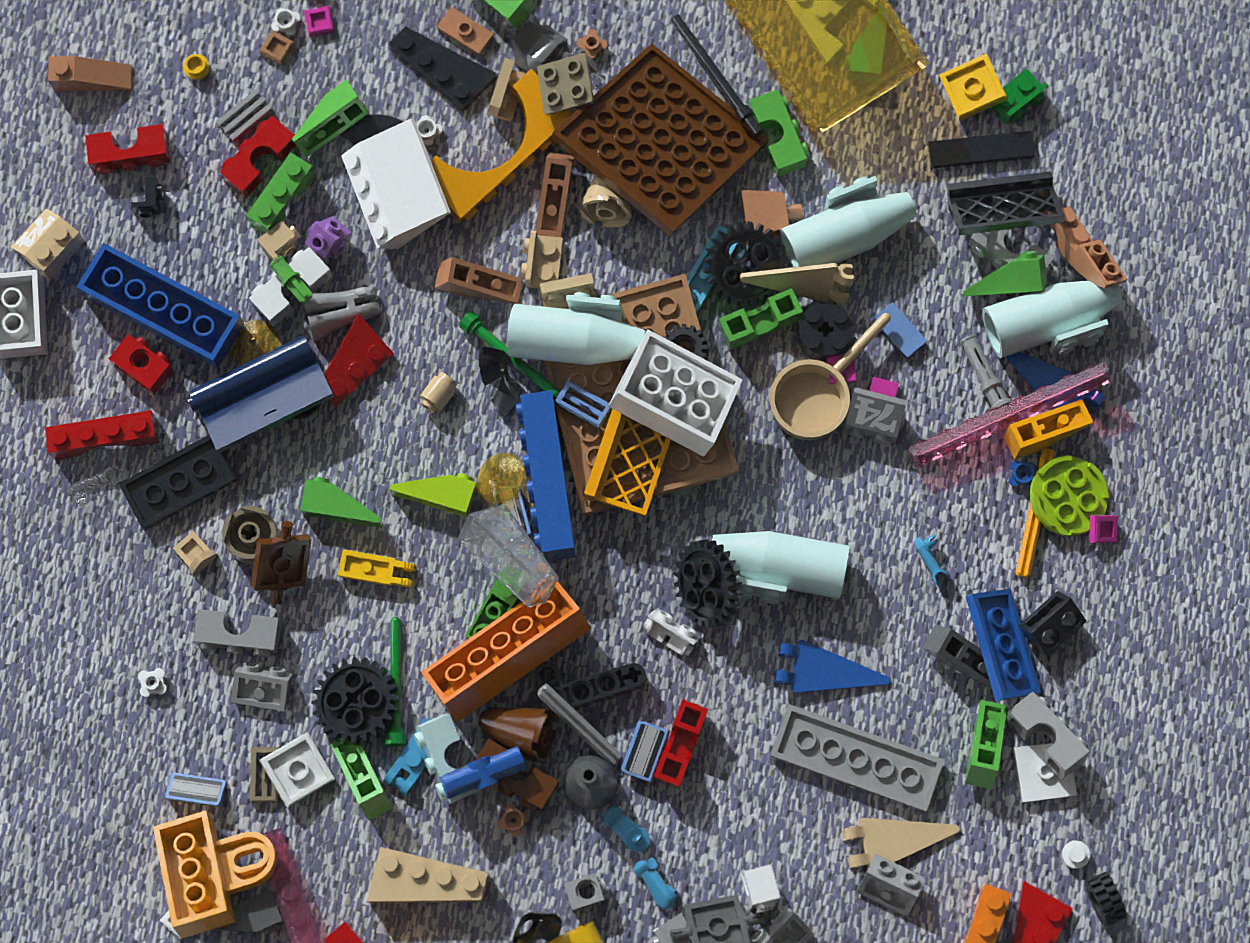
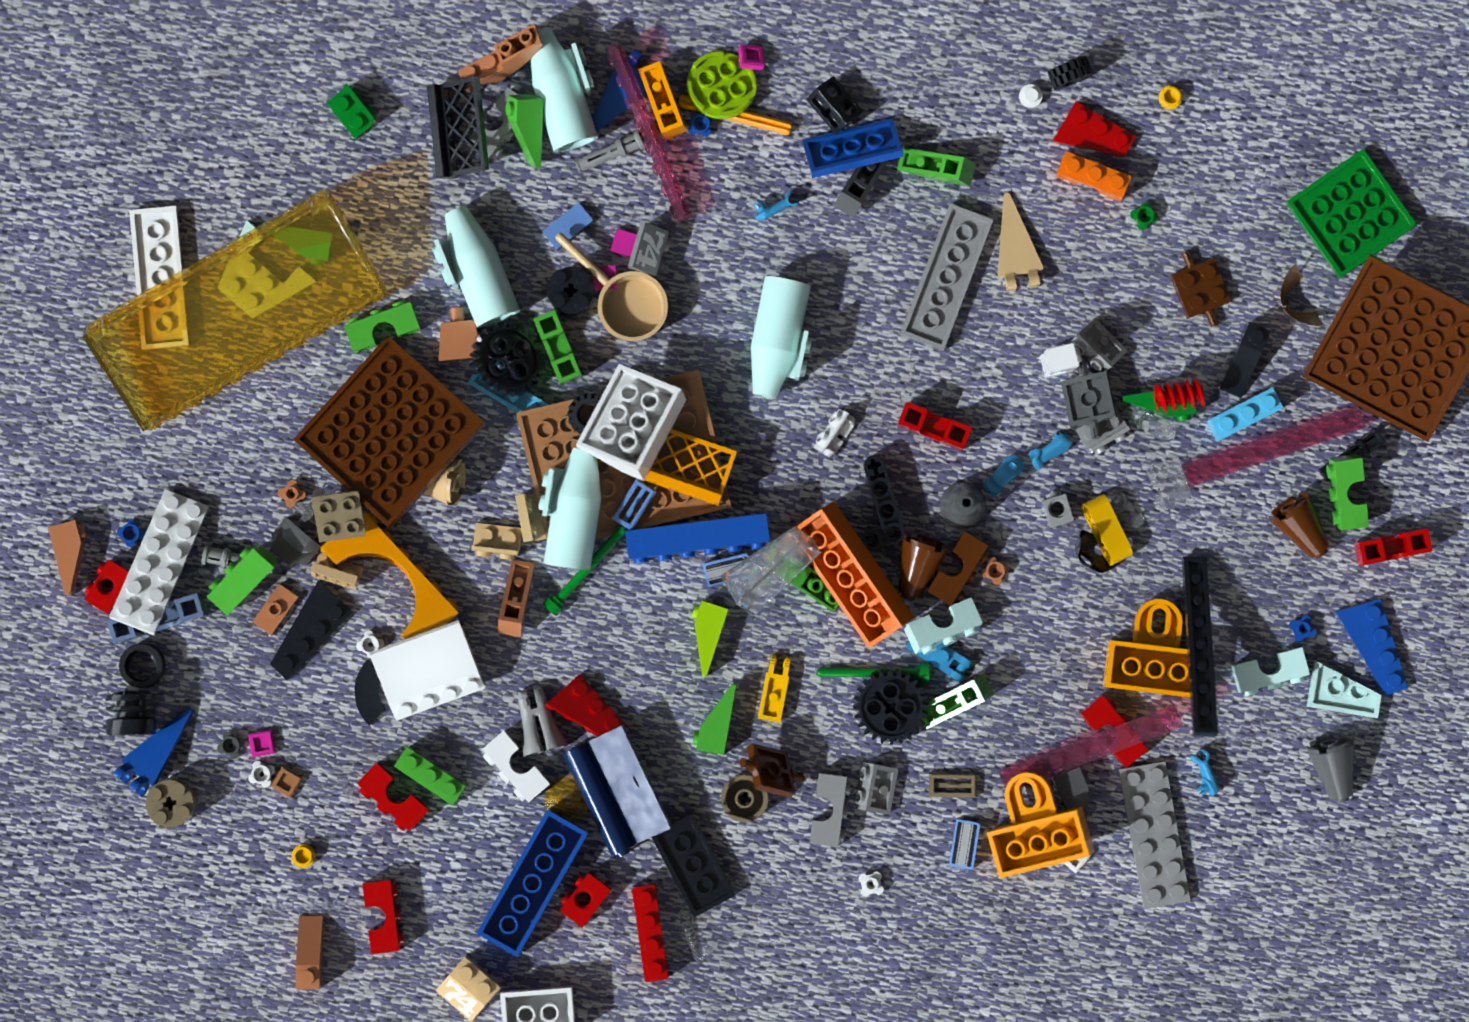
camera: 90 degrees left, 10 degrees up
(153, 194) = (426, 890): black bracket -> none
(195, 553) = (756, 849): tan tile -> none
(240, 107) = (338, 795): light grey tile -> none
(279, 241) = (474, 776): tan brick -> none
(291, 280) = (515, 763): bright green axle -> none
(297, 769) = (949, 756): white plate -> none
(327, 237) = (473, 732): medium lavender brick -> none
(331, 117) = (356, 728): bright green slope -> none
(417, 879) = (1045, 650): tan wedge -> none
(438, 392) = (617, 634): tan brick -> none
(482, 772) = (959, 594): blue piece -> none
(490, 366) = (617, 572): black piece -> none
(507, 482) = (699, 571): clear yellow dish -> none
(555, 194) = (436, 529): nougat slope -> none
(579, 724) = (916, 512): light grey axle -> none
(645, 751) = (938, 457): slope -> none
(707, 583) = (797, 399): black gear -> none
(743, 111) = (364, 357): black bar -> none
(811, 282) = (525, 300): tan flag -> none
(823, 670) = (869, 304): blue flag -> none
(891, 885) = (1055, 251): light grey bracket -> none
(973, 87) = (343, 151): yellow tile -> none
(980, 149) = (401, 147): black tile -> none
(1034, 716) = (914, 123): light grey arch -> none
(1036, 779) = (960, 118): white plate -> none

